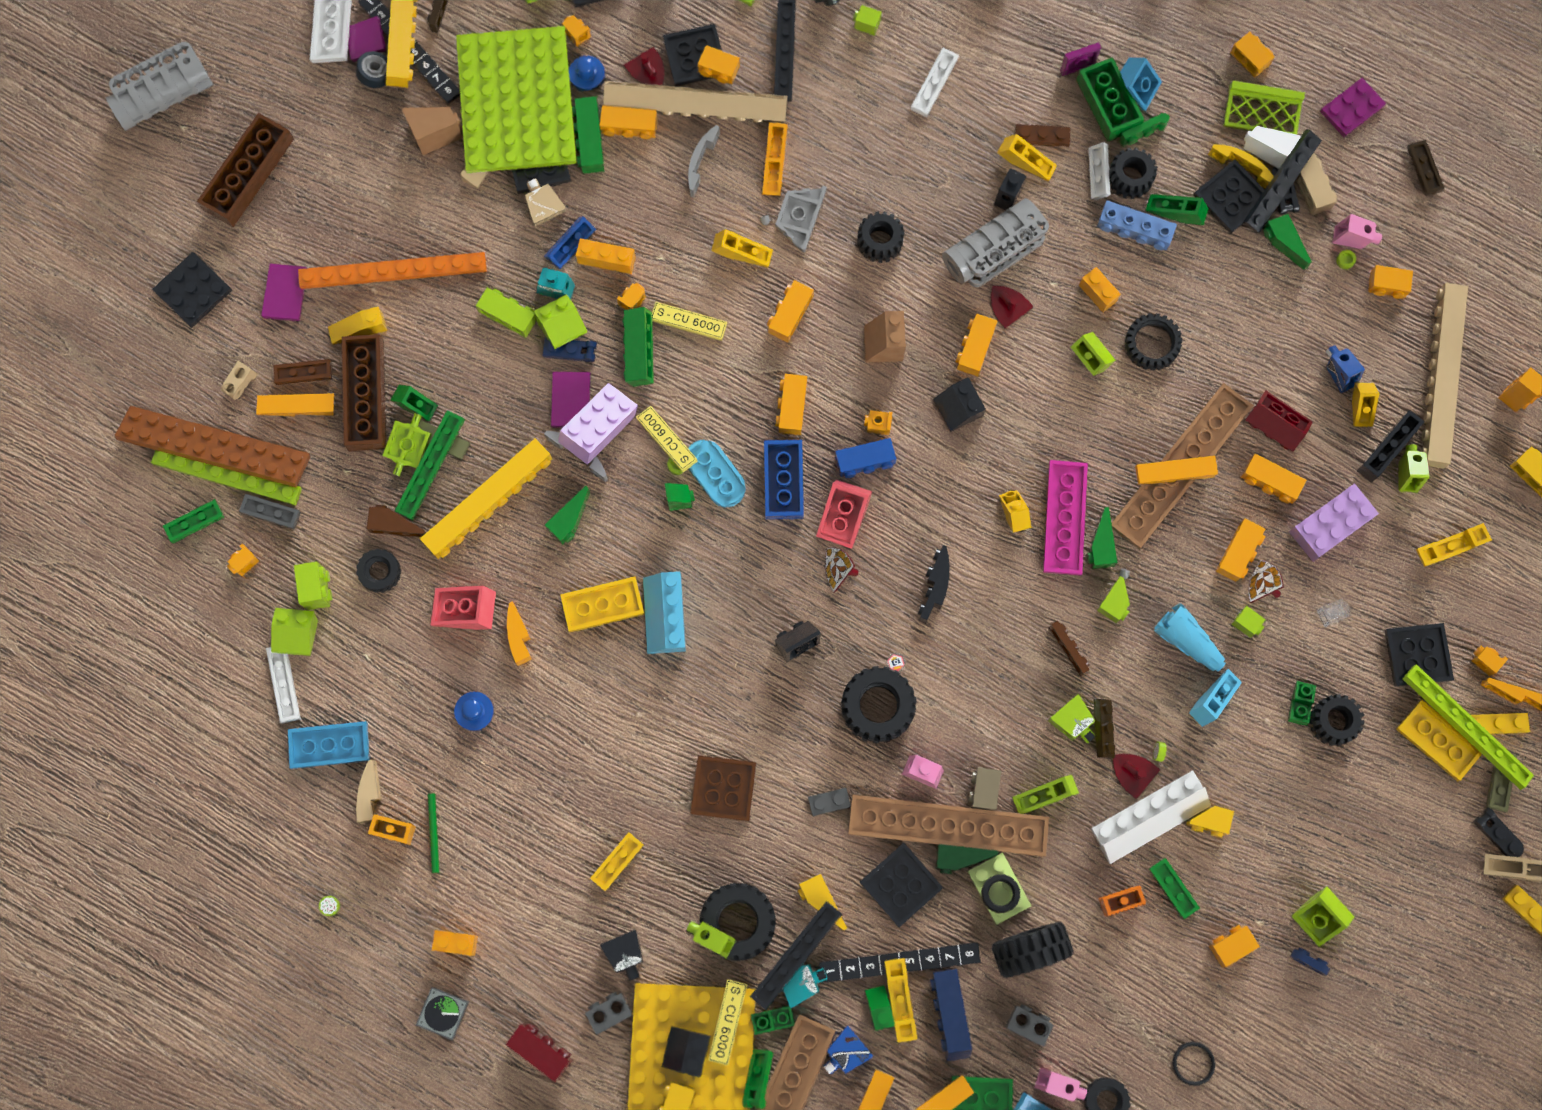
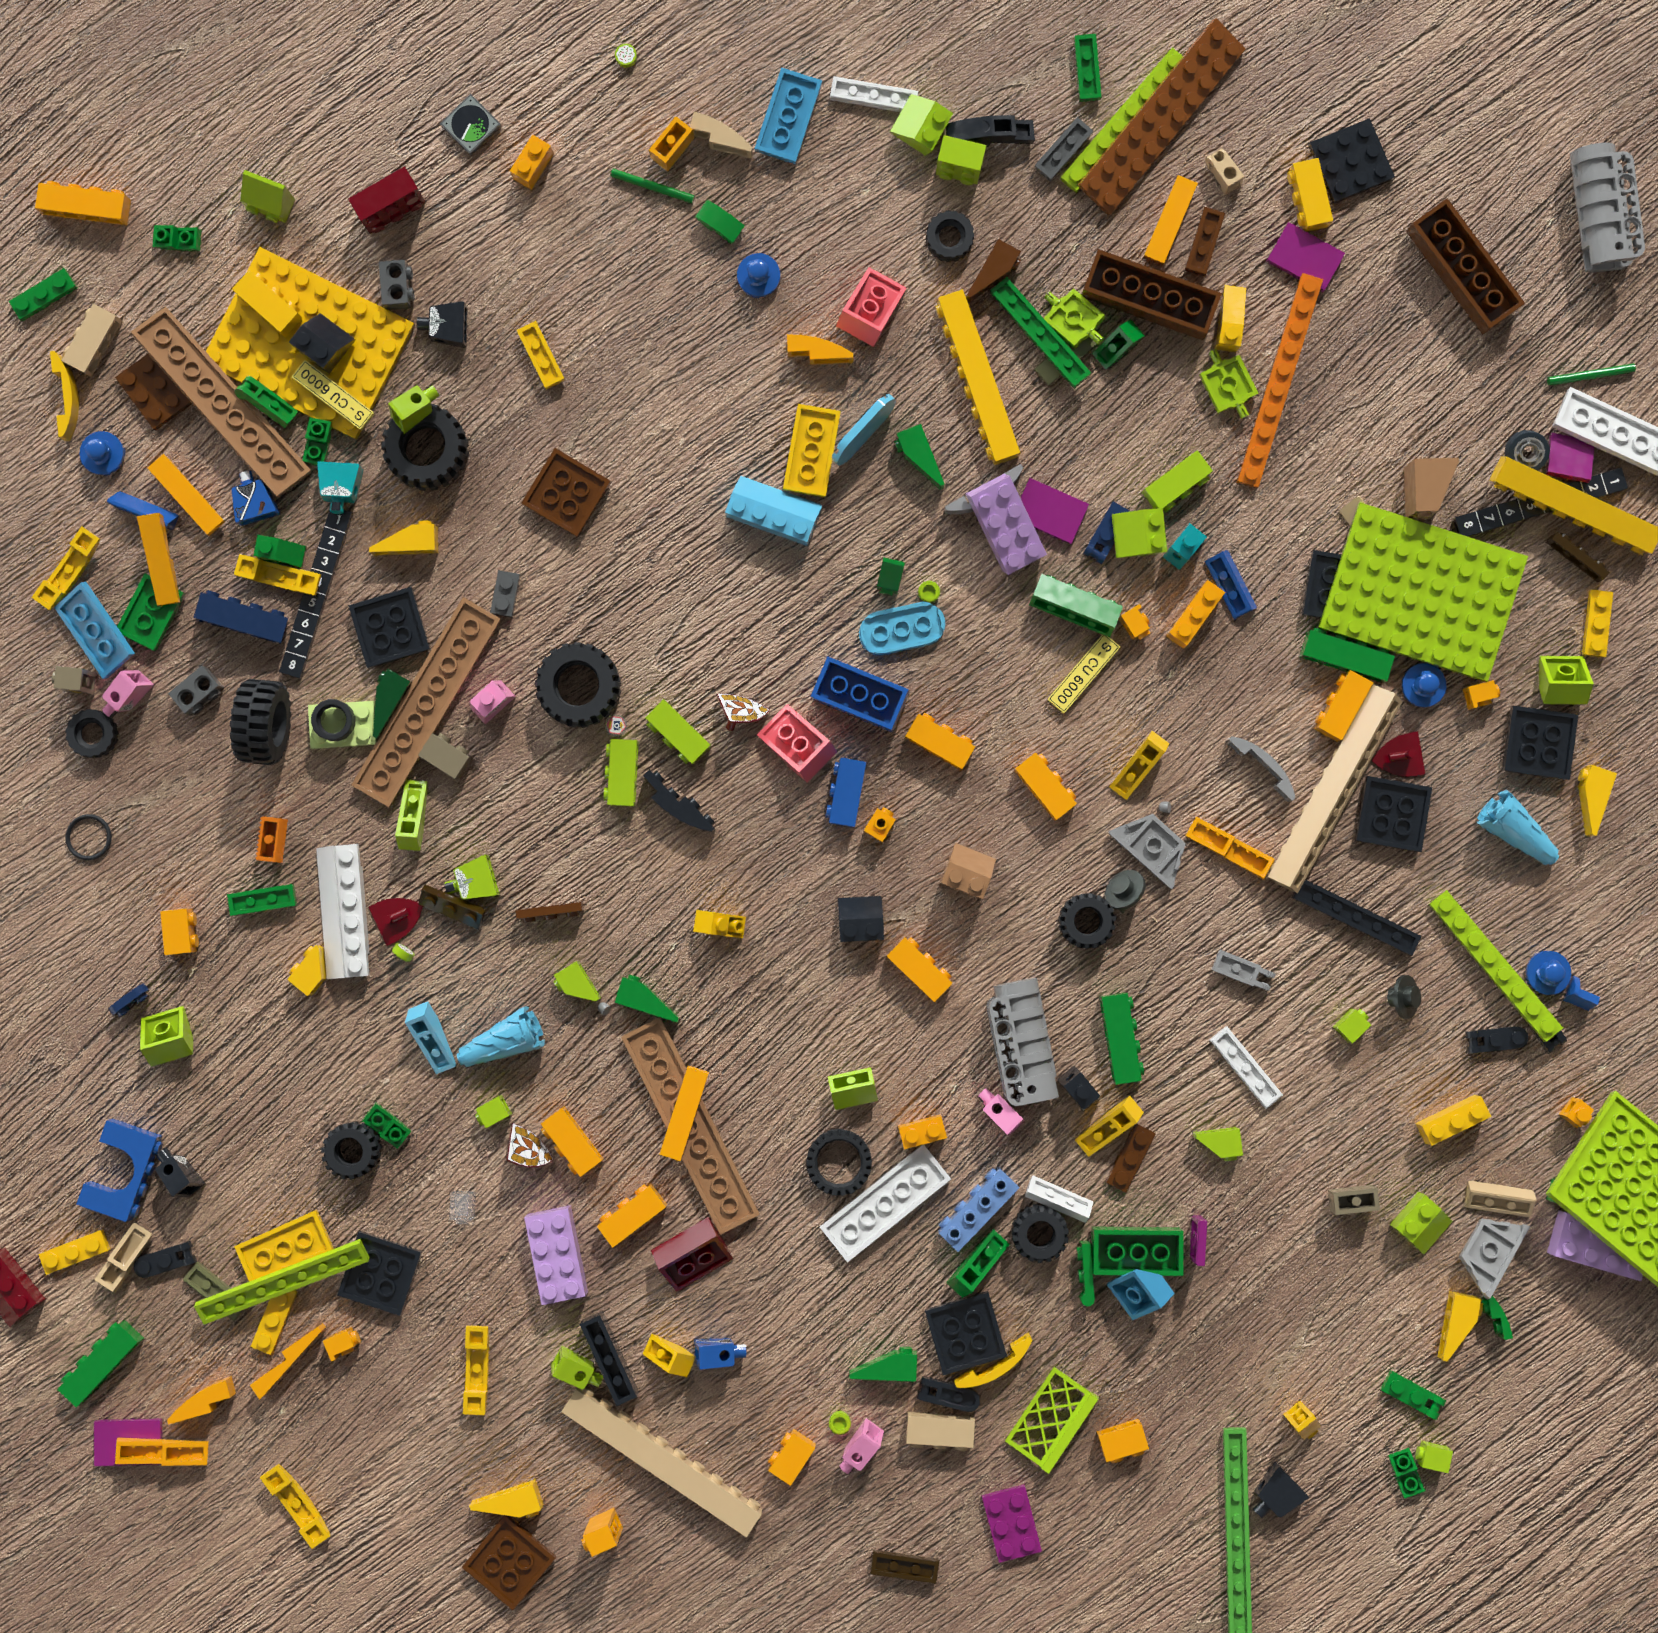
camera: 120 degrees right, 10 degrees up
(233, 307) = (1310, 195): none -> yellow brick
(242, 561) = (1022, 101): light orange brick -> none
(277, 573) = (993, 130): none -> black slope
(293, 51) = (1591, 374): none -> green bar
(411, 307) = (1228, 384): none -> lime plate
(441, 762) = (720, 221): none -> green slope
(543, 203) = (1287, 571): tan torso -> none
(568, 567) = (864, 429): none -> medium azure tile
(666, 439) = (960, 592): light yellow tile -> none
(718, 65) = (1365, 831): light orange brick -> none
(796, 955) = (363, 487): black plate -> none
(798, 640) = (681, 631): black slope -> none
(843, 218) = (1125, 890): none -> pearl dark grey piece
(863, 114) = (1240, 969): none -> light grey hinge
(879, 610) = (677, 733): none -> lime brick
(932, 640) = (621, 772): none -> lime brick
(957, 177) = (1120, 1038): none -> green brick
(998, 74) = (1223, 1142): none -> lime slope
(1008, 305) = (951, 1027): dark red shield -> none
(1058, 232) = (1008, 1119): none -> bright pink torso
(1065, 517) = (689, 974): dark pink plate -> none
(1167, 295) = (885, 1202): none -> white plate
(1270, 144) = (1003, 1406): white slope -> none
(1282, 180) = (955, 1394): black plate -> none
(1428, 845) = (178, 1174): none -> black torso
(1474, 892) = (142, 1148): none -> blue arch

